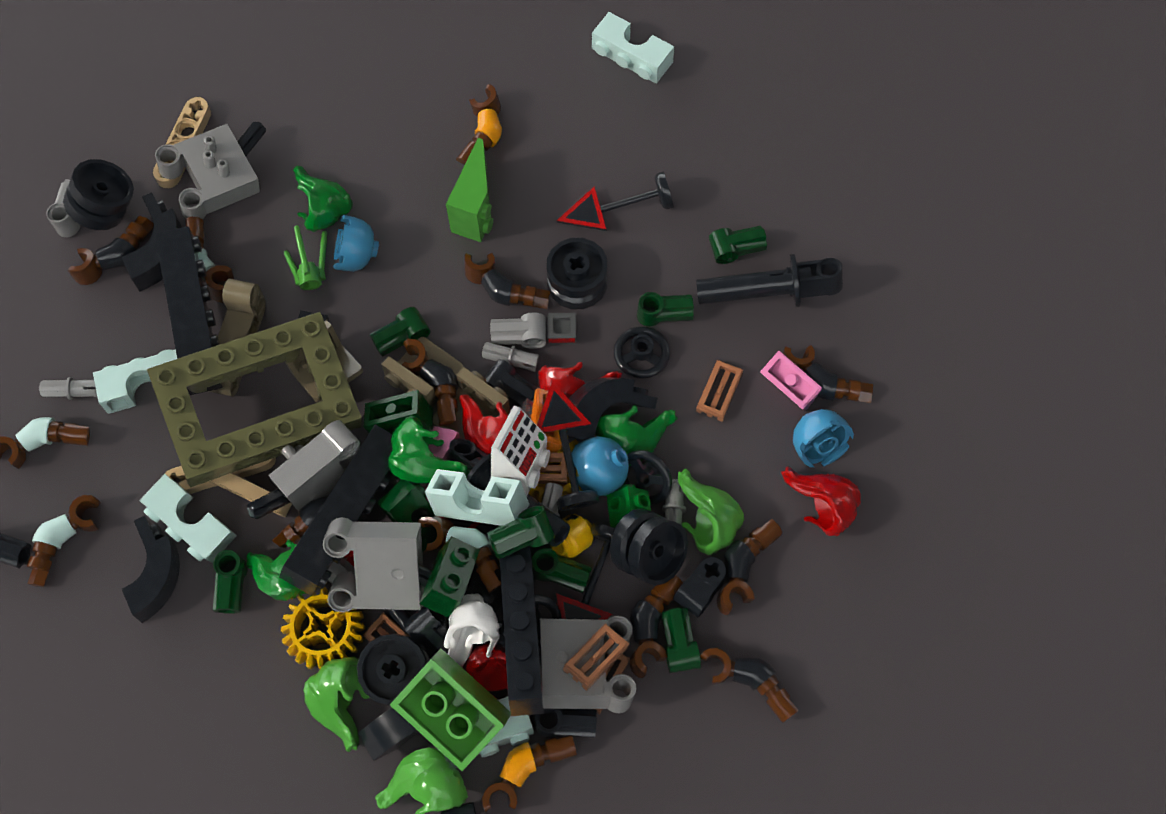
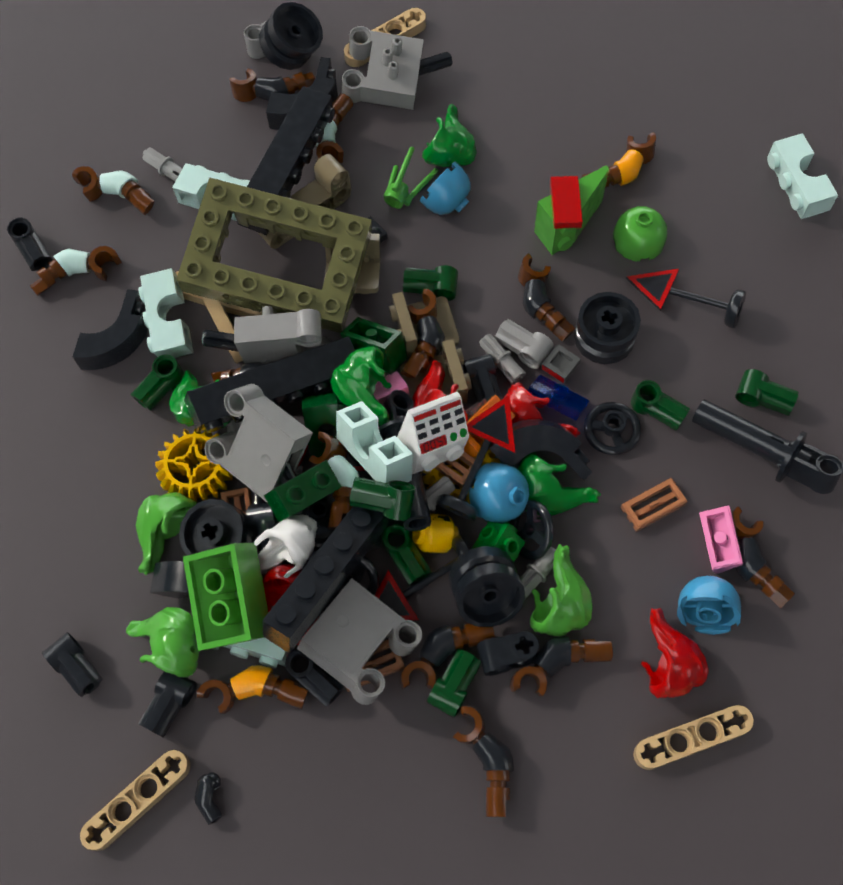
camera: 40 degrees right, 0 degrees up
(471, 190) = (566, 202): none -> red tile
(541, 177) = (640, 233): none -> bright green cylinder
(579, 674) = (342, 645): nougat tile -> none
(590, 355) = (560, 397): none -> clear blue plate
(883, 546) = (691, 732): none -> tan beam

